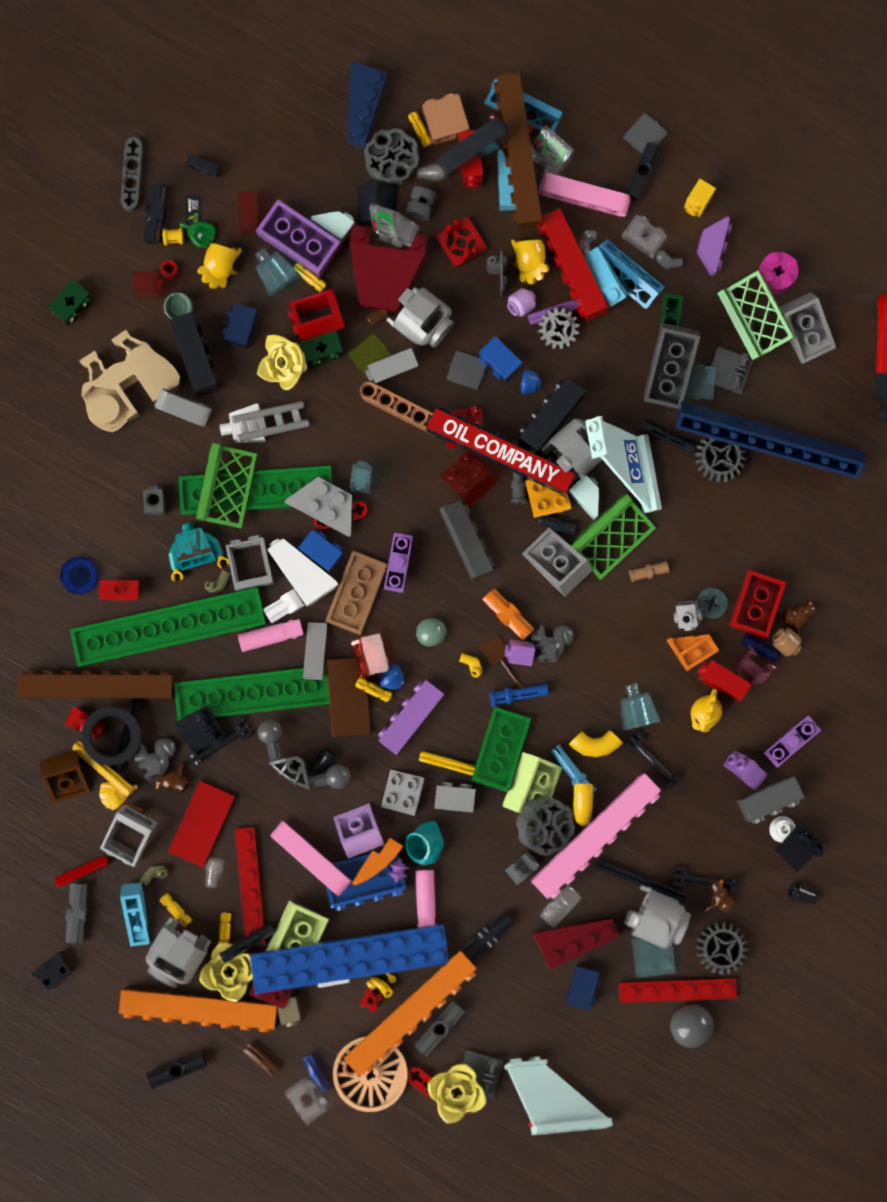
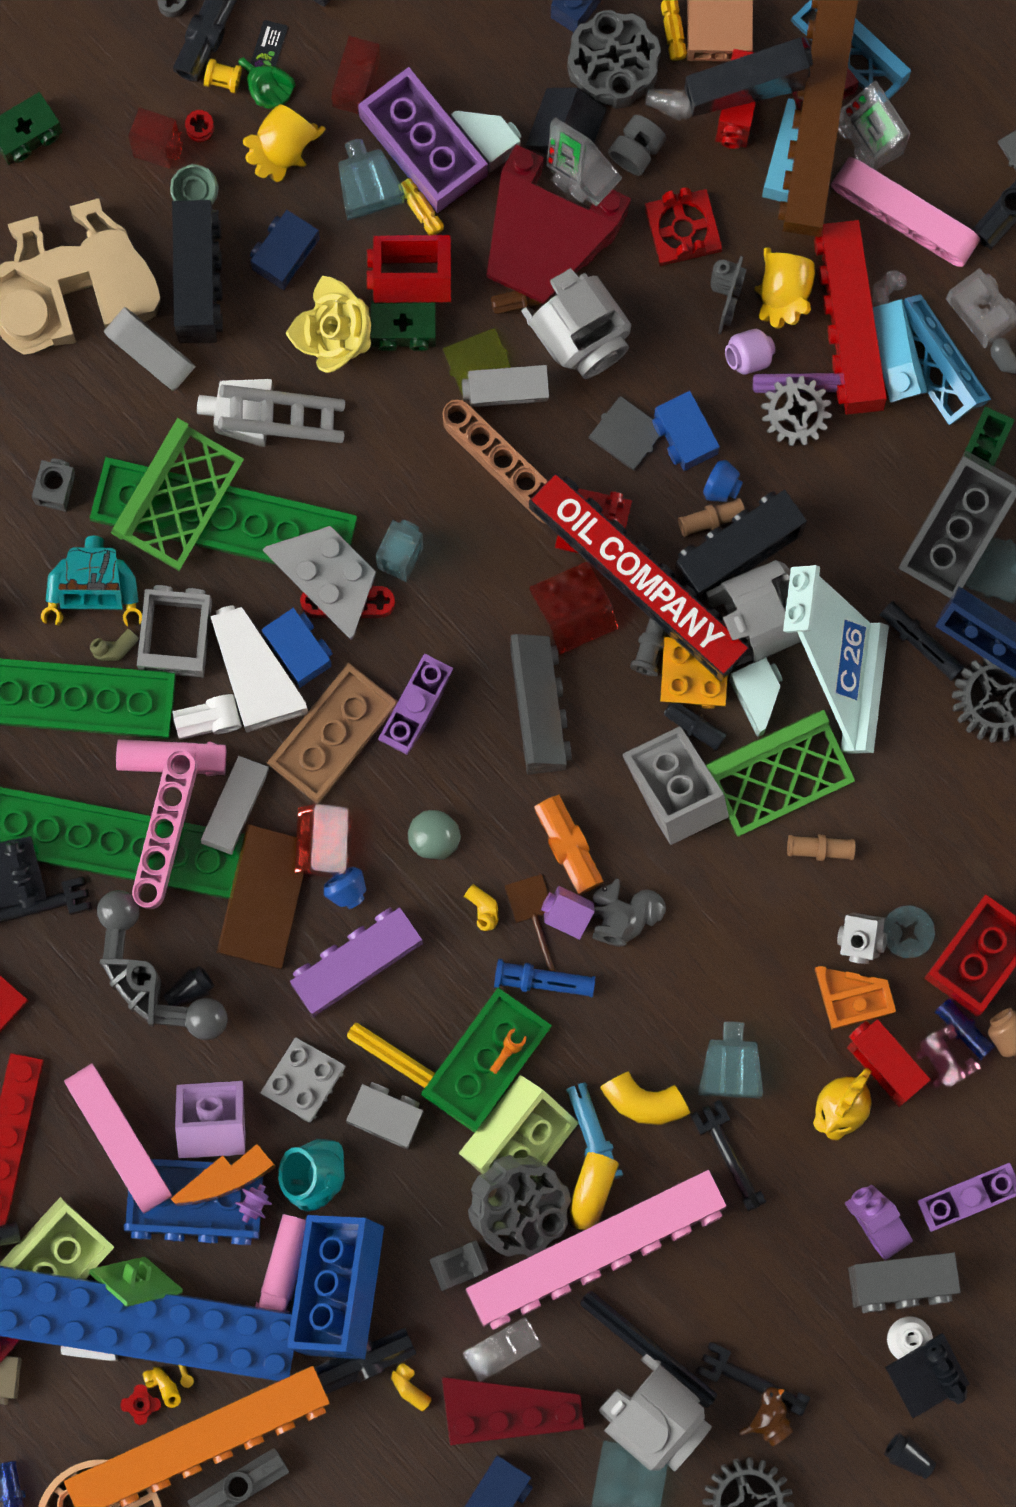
camera: 15 degrees right, 5 degrees down
(278, 687) = (163, 812): none -> bright pink beam
(346, 935) = (135, 1281): none -> bright green piece
(373, 689) = (309, 897): yellow axle -> none
(458, 902) = (335, 1287): none -> blue brick
(512, 739) = (509, 1048): none -> orange hand
(514, 945) = (408, 1390): none -> yellow arm
(529, 404) = (710, 517): none -> medium nougat pin

